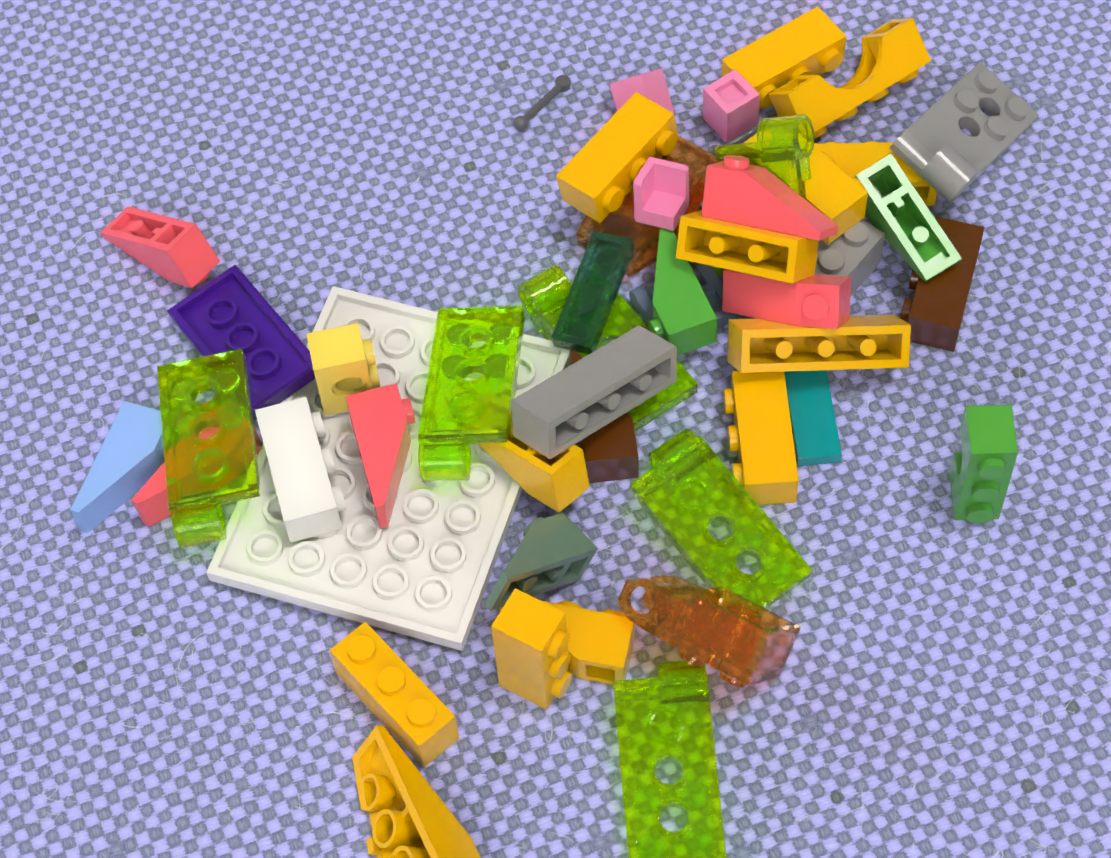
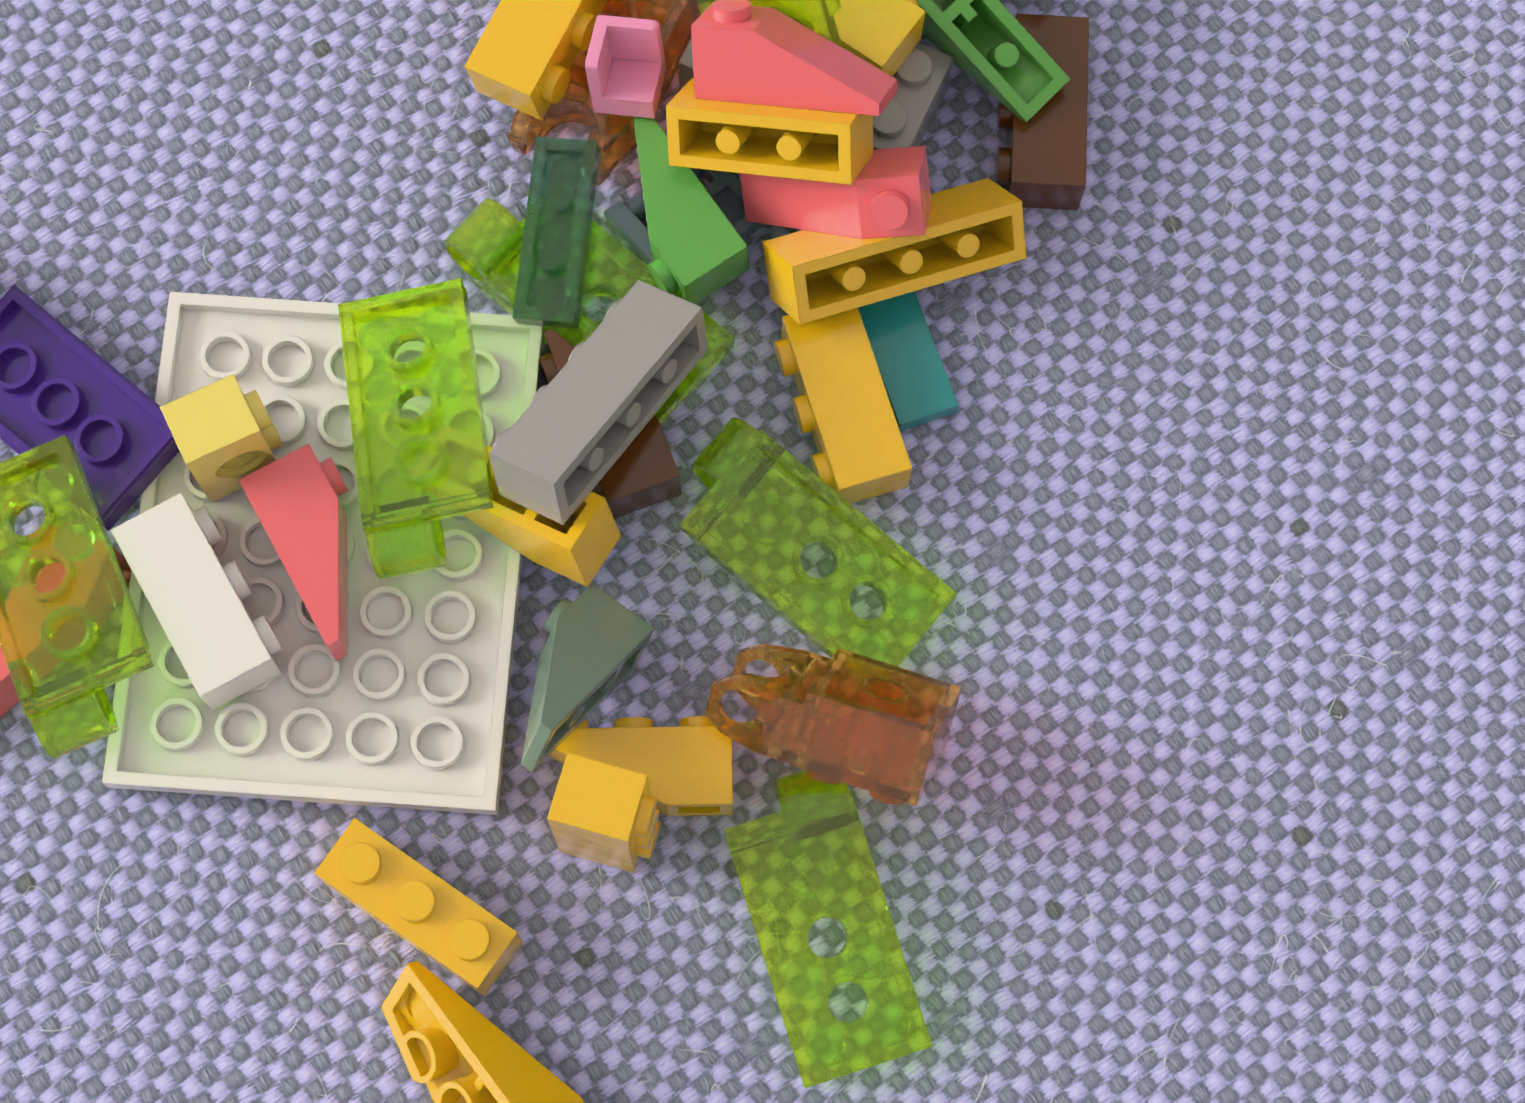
camera: 20 degrees left, 15 degrees up
(986, 463) = (1166, 395): bright green arch -> none

